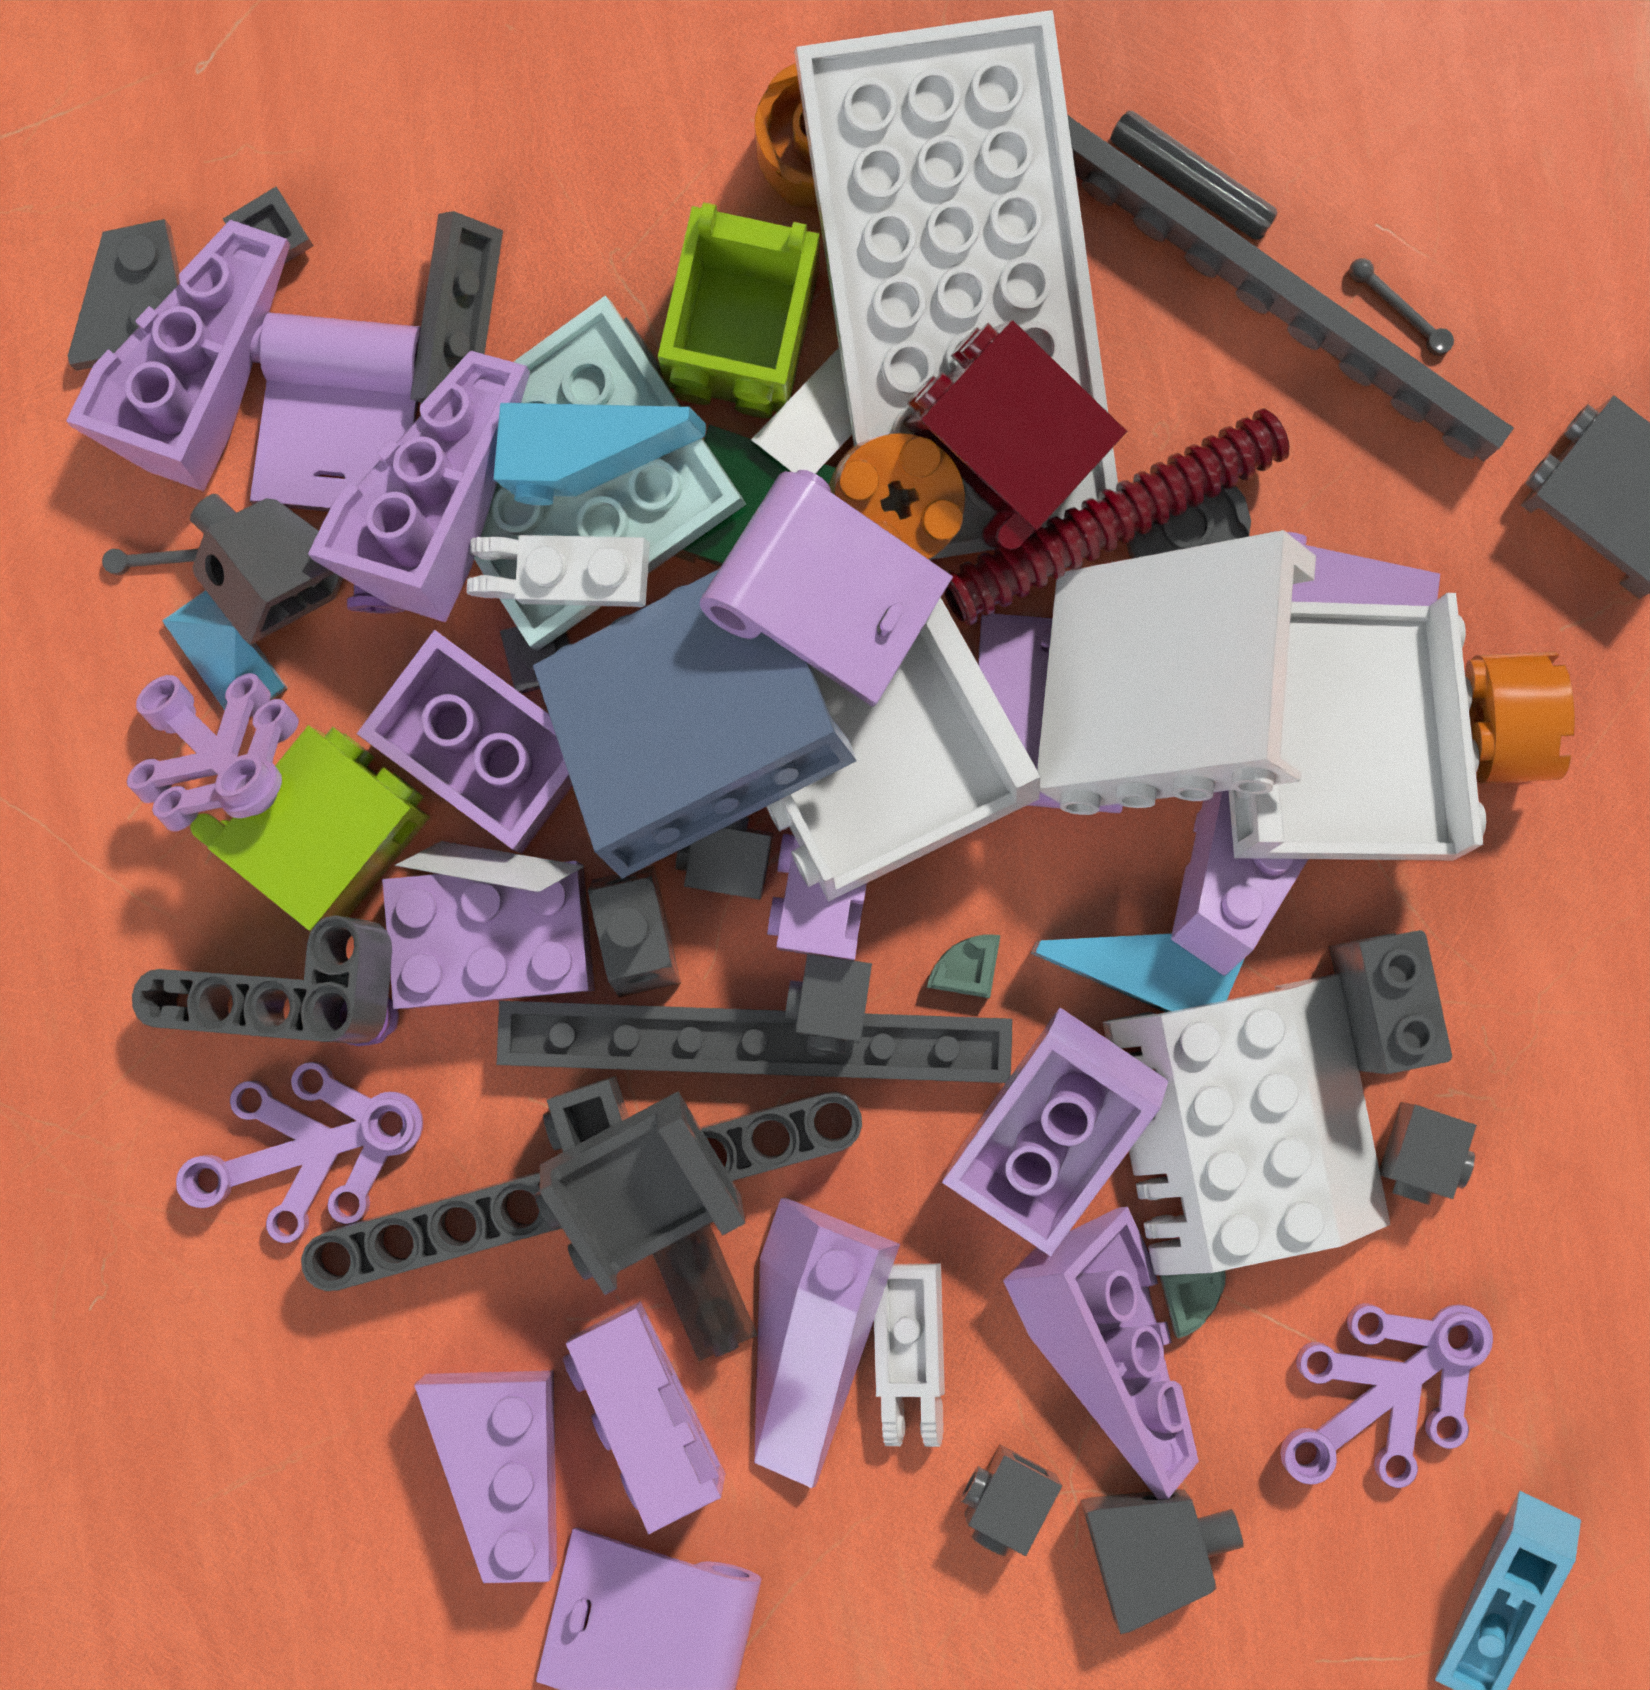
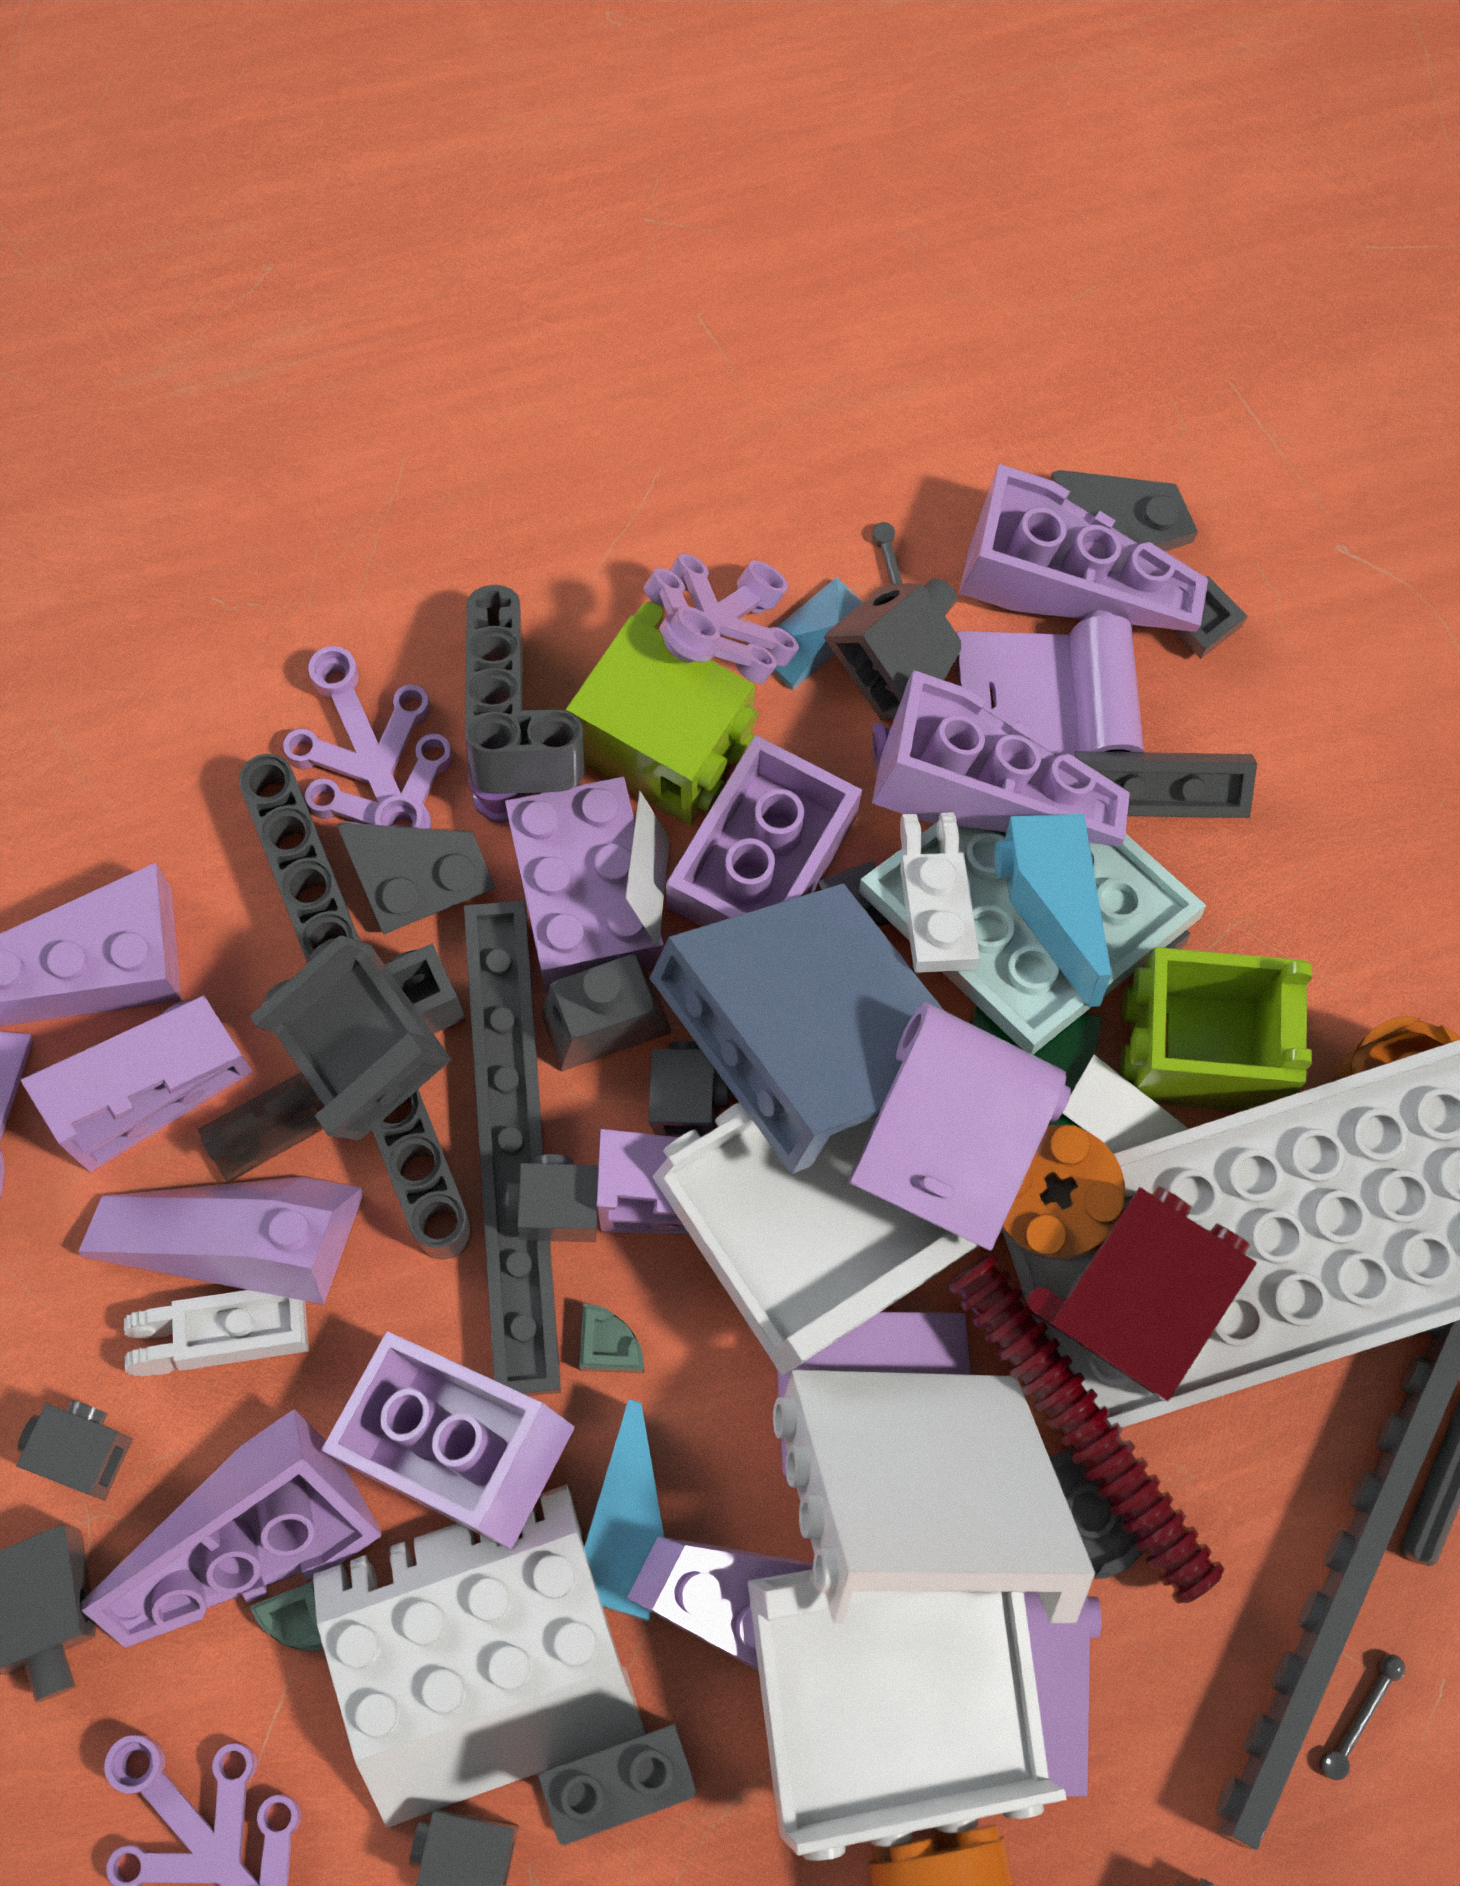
camera: 80 degrees right, 15 degrees down
(449, 1112) = (414, 869): none -> dark grey wing

